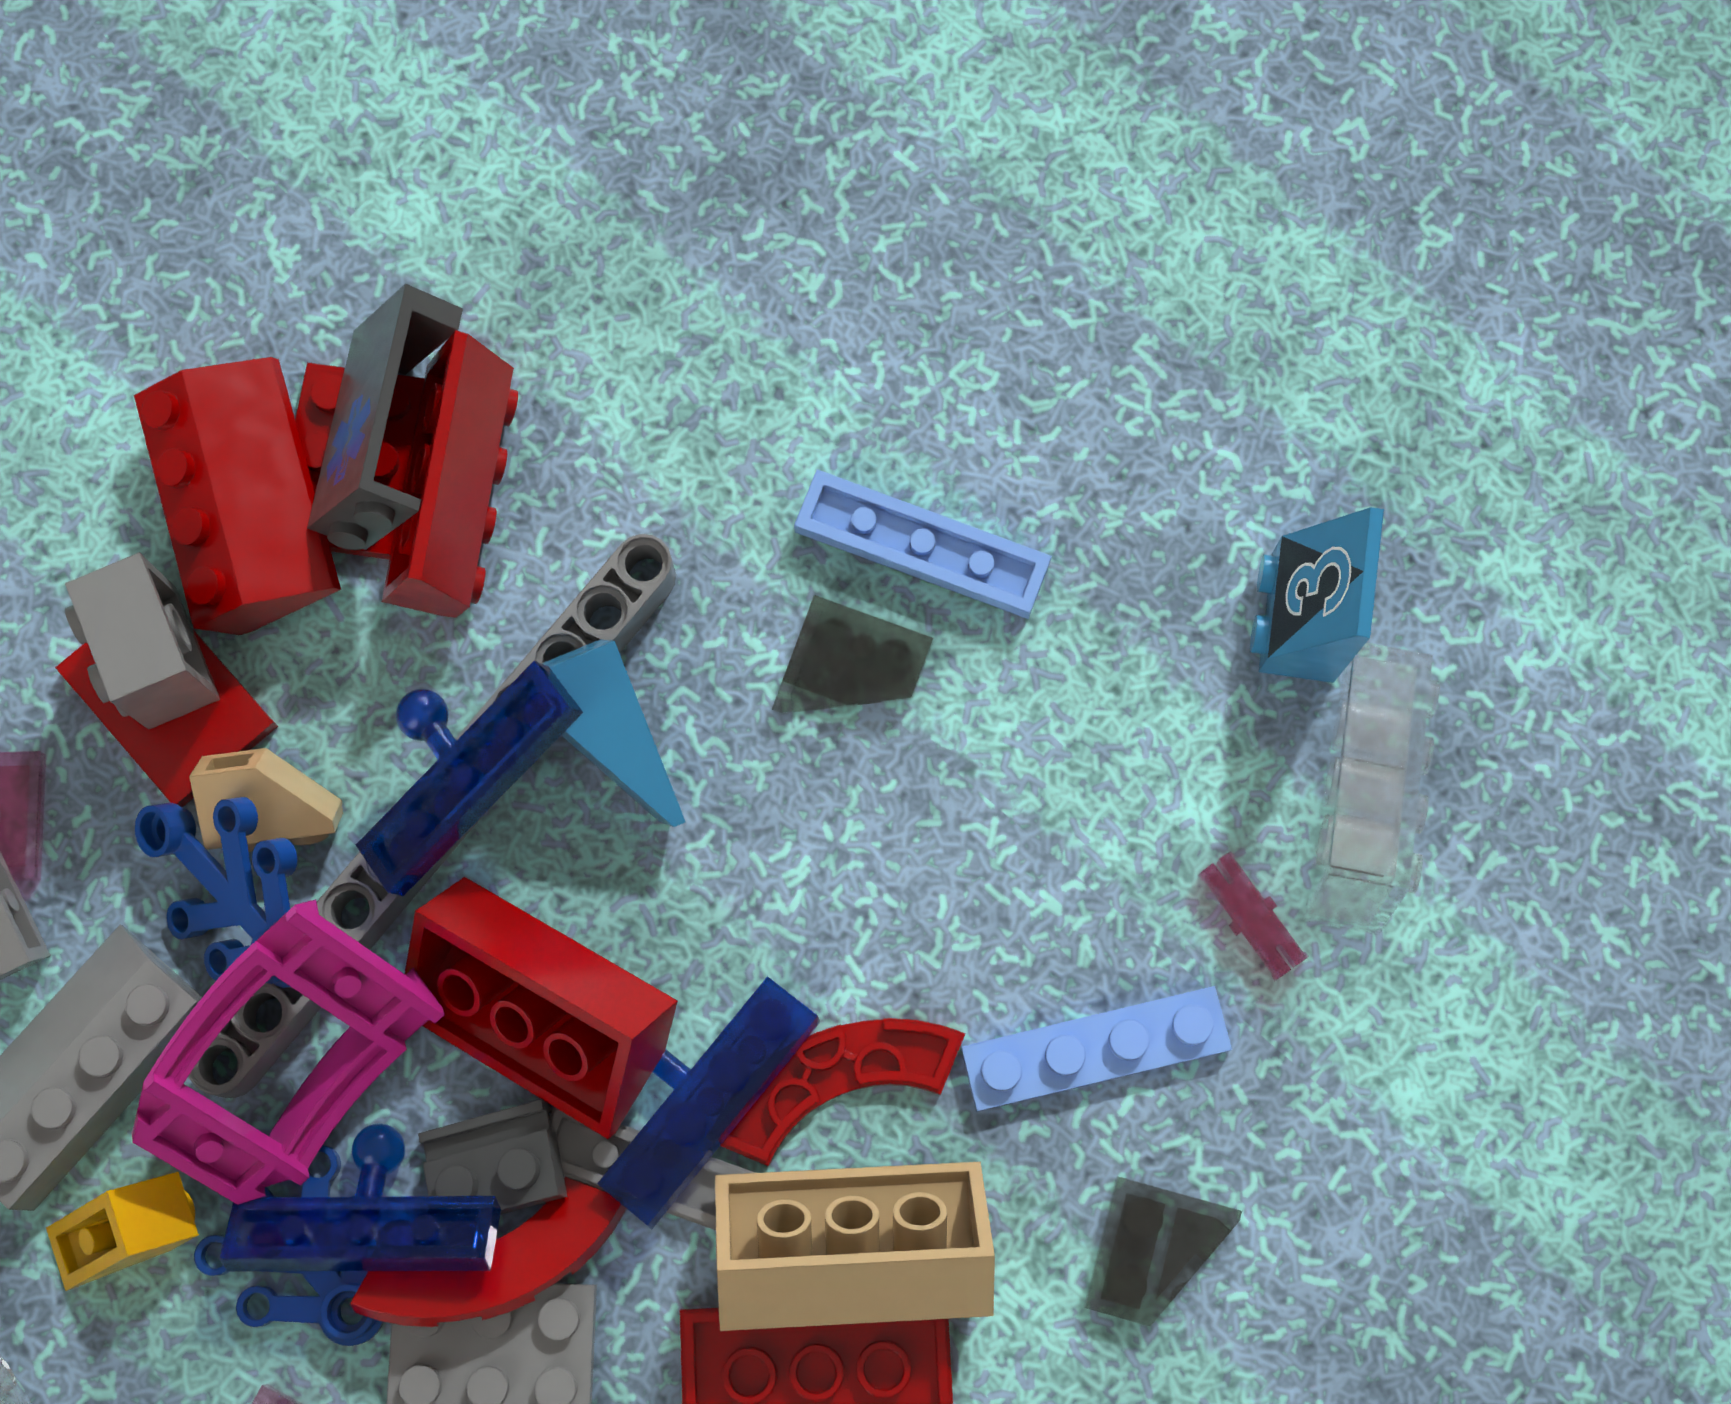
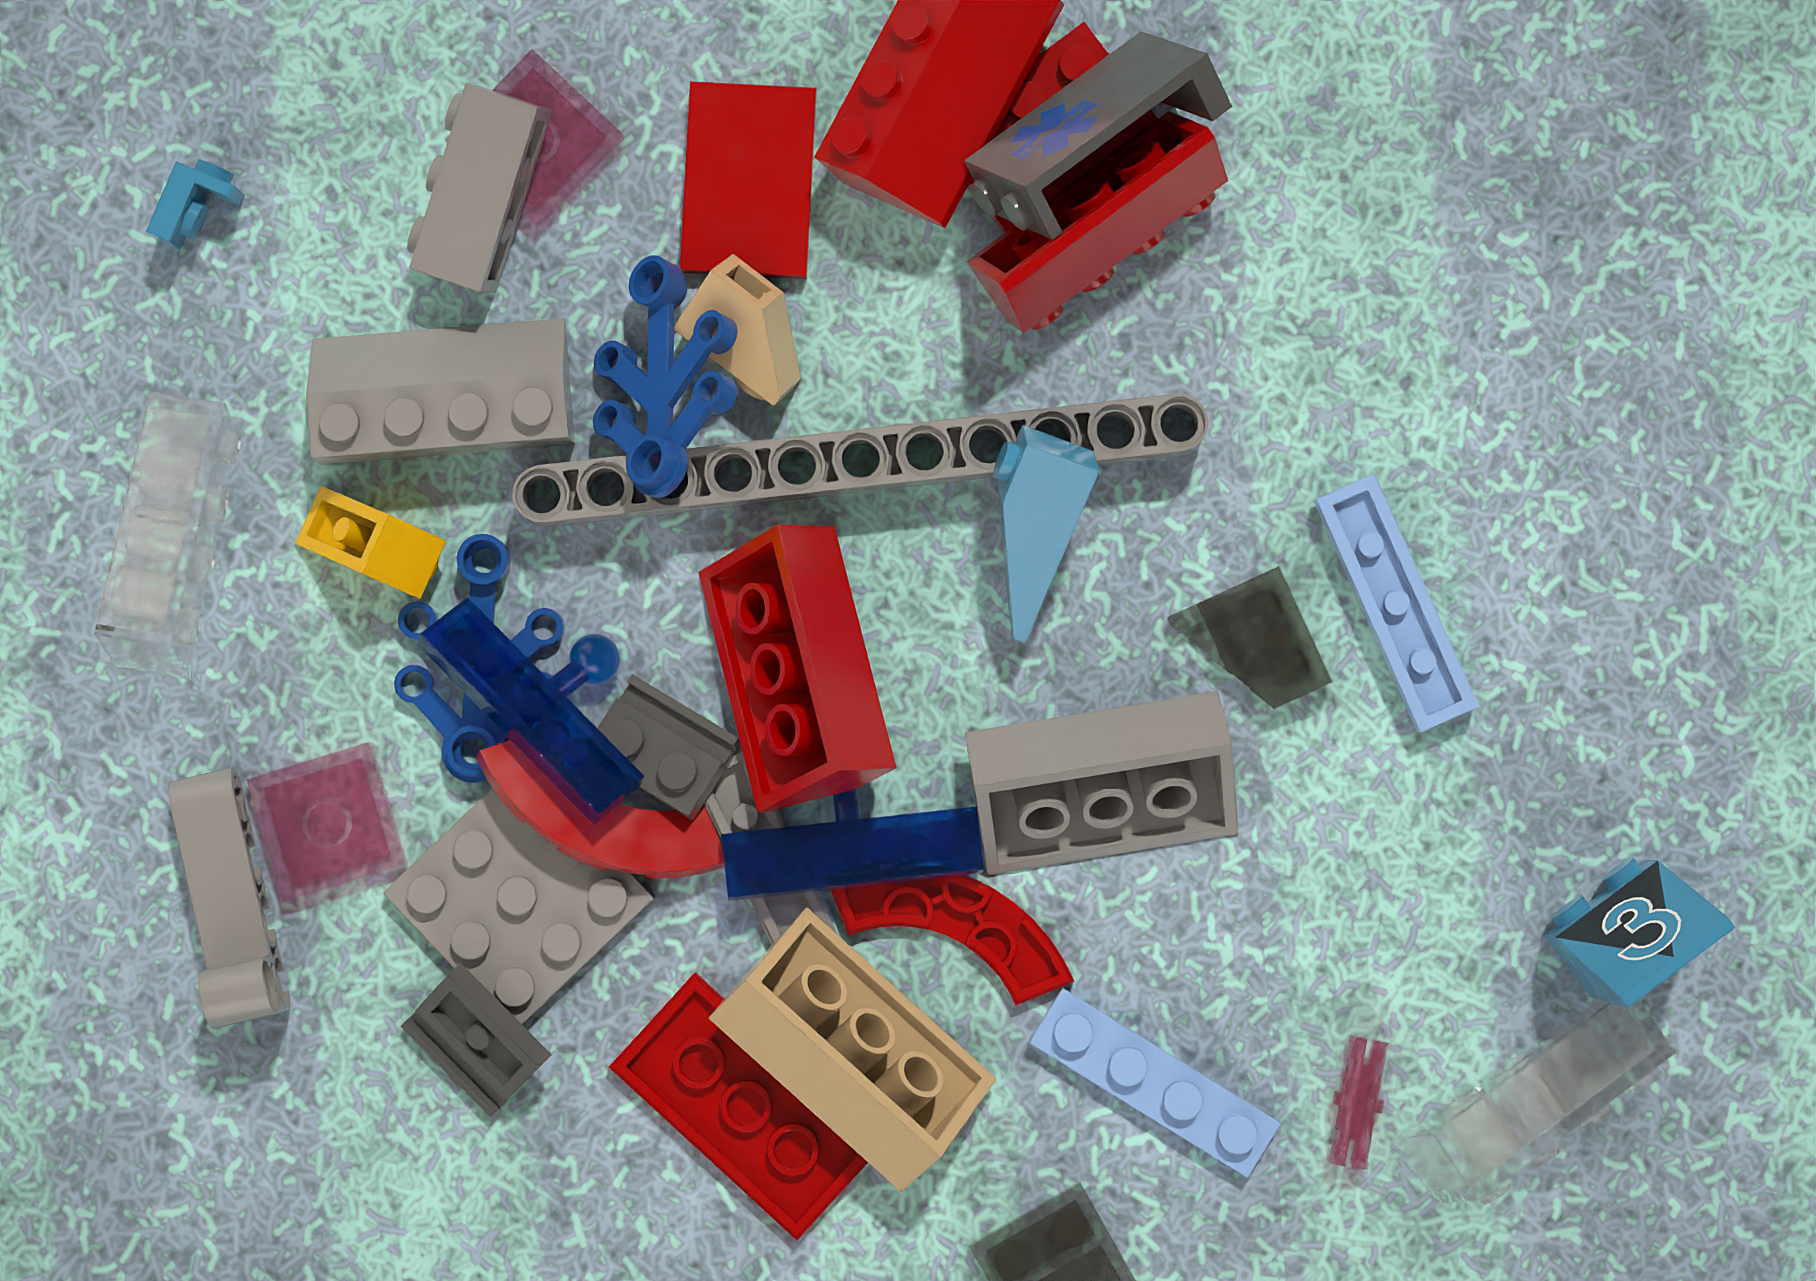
camera: 45 degrees right, 10 degrees up
(139, 642) = (767, 135): light grey brick -> none
(336, 975) = (681, 518): dark pink wedge -> none
(468, 771) = (904, 466): clear blue plate -> none
(842, 869) = (1103, 782): none -> light grey slope

